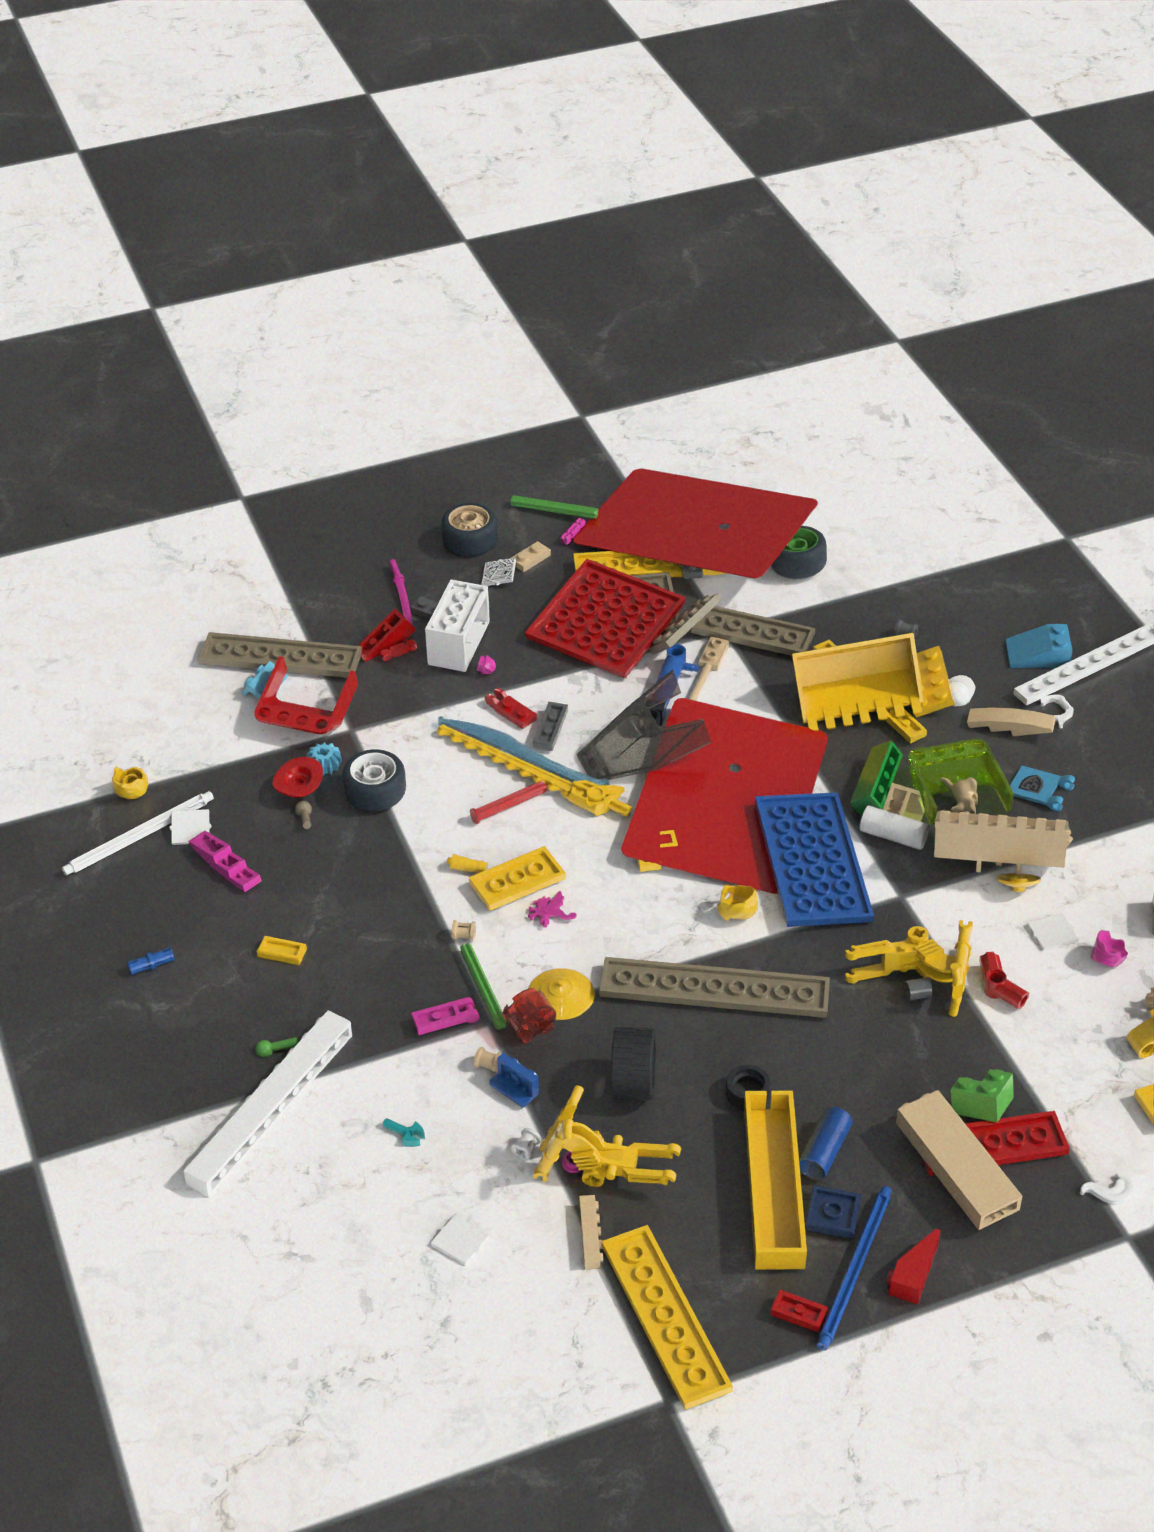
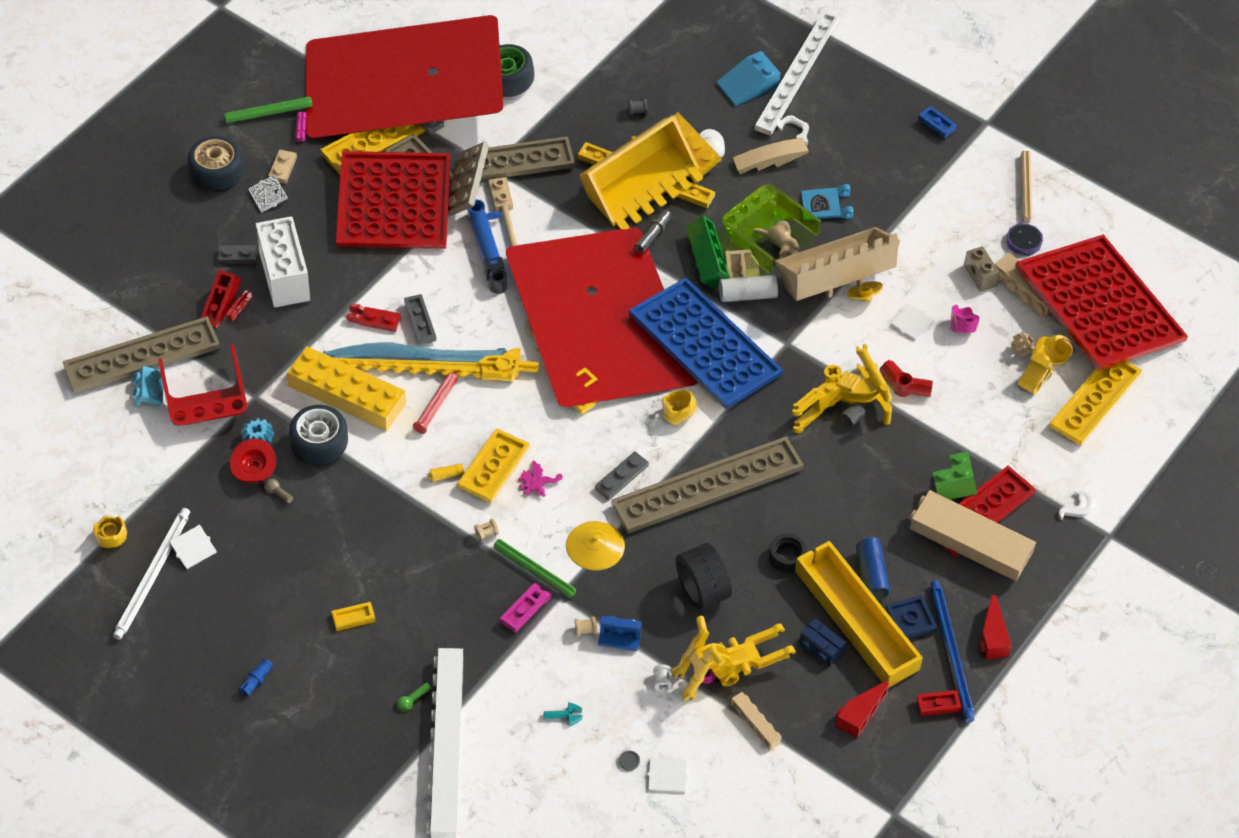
camera: 35 degrees left, 10 degrees up
(224, 861) = (249, 564): dark pink slope -> none
(399, 580) = (188, 238): dark pink sword -> none
(434, 755) = (346, 388): none -> yellow brick
(434, 1206) = (629, 760): none -> dark grey piece
(486, 665) = (324, 287): dark pink plate -> none
(530, 1014) = (594, 574): clear red brick -> none
(636, 742) = (506, 305): clear smoke windscreen -> none
(636, 942) = (621, 475): none -> dark grey plate
(667, 1317) = (853, 754): yellow plate -> none
(709, 1274) = (860, 710): none -> red slope
(716, 1189) = (822, 642): none -> dark blue brick
(844, 738) = (657, 226): none -> dark grey pin

